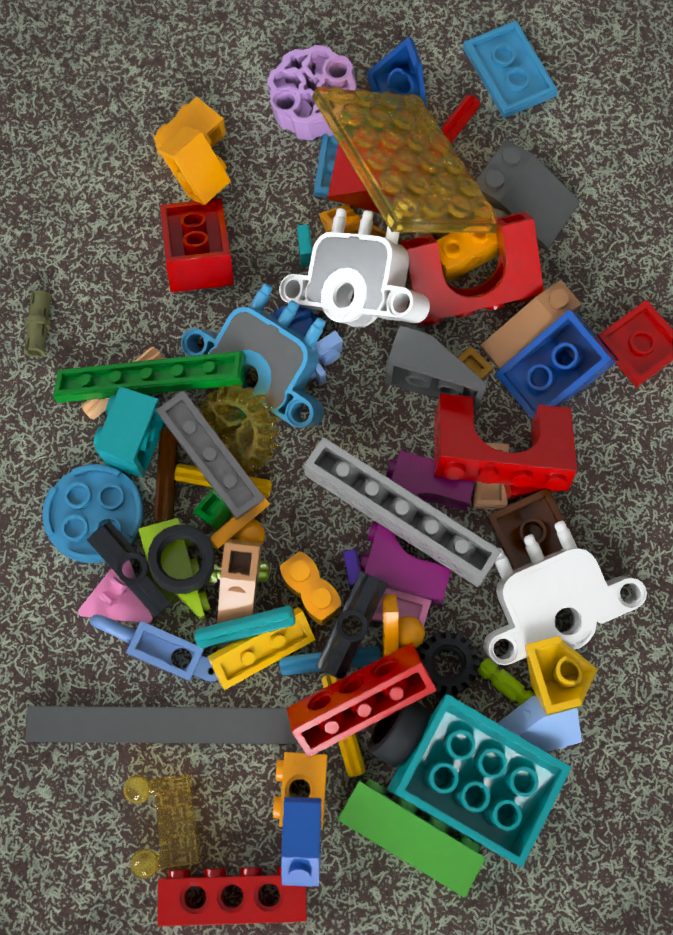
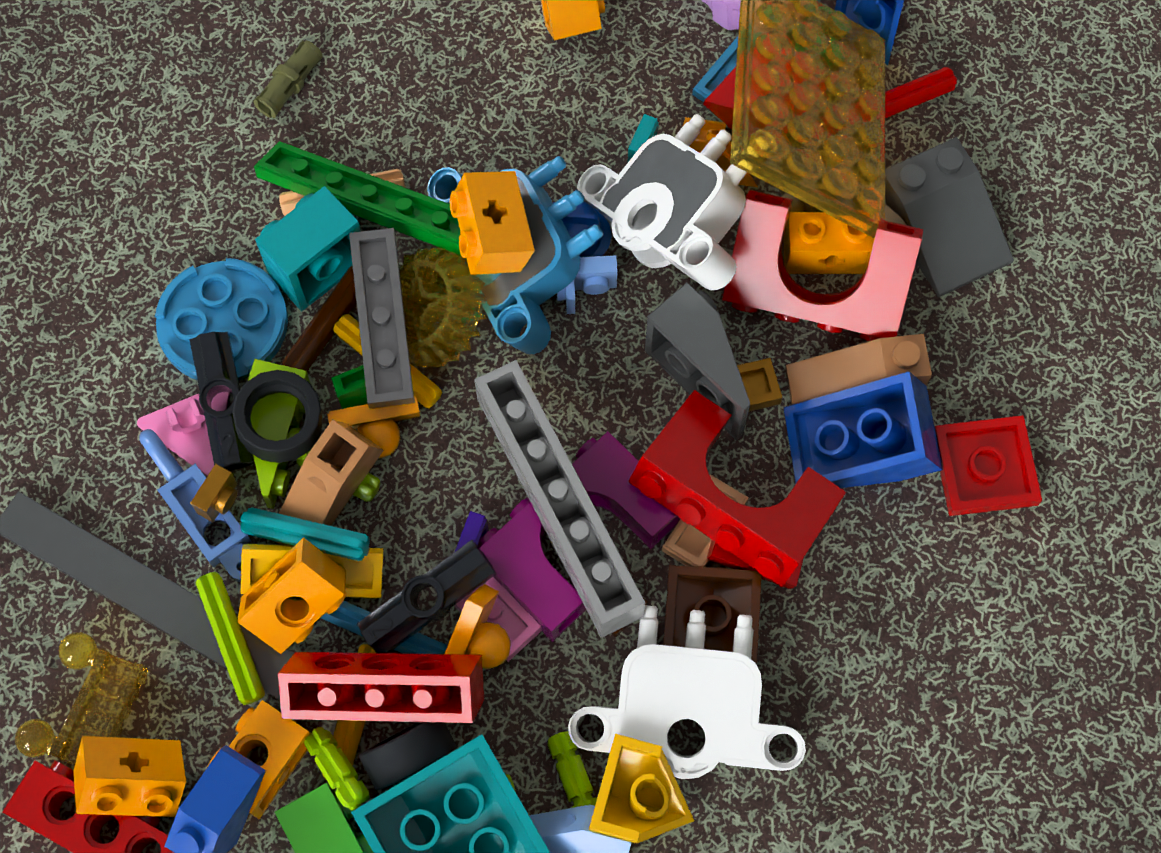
camera: 30 degrees right, 5 degrees down
(171, 634) = (215, 494): none -> pearl gold plate
(196, 245) = (516, 81): red slope -> none
(228, 853) = (129, 776): none -> light orange brick
(235, 723) = (230, 638): none -> lime axle
(250, 352) = (492, 222): none -> light orange brick
(262, 673) = (299, 573): none -> light orange brick
(304, 582) = (409, 528): light orange brick -> none
(359, 768) = (336, 768): none -> lime axle
(465, 651) = (538, 731): black tyre -> none
(510, 69) = (1020, 63): dark azure tile -> none

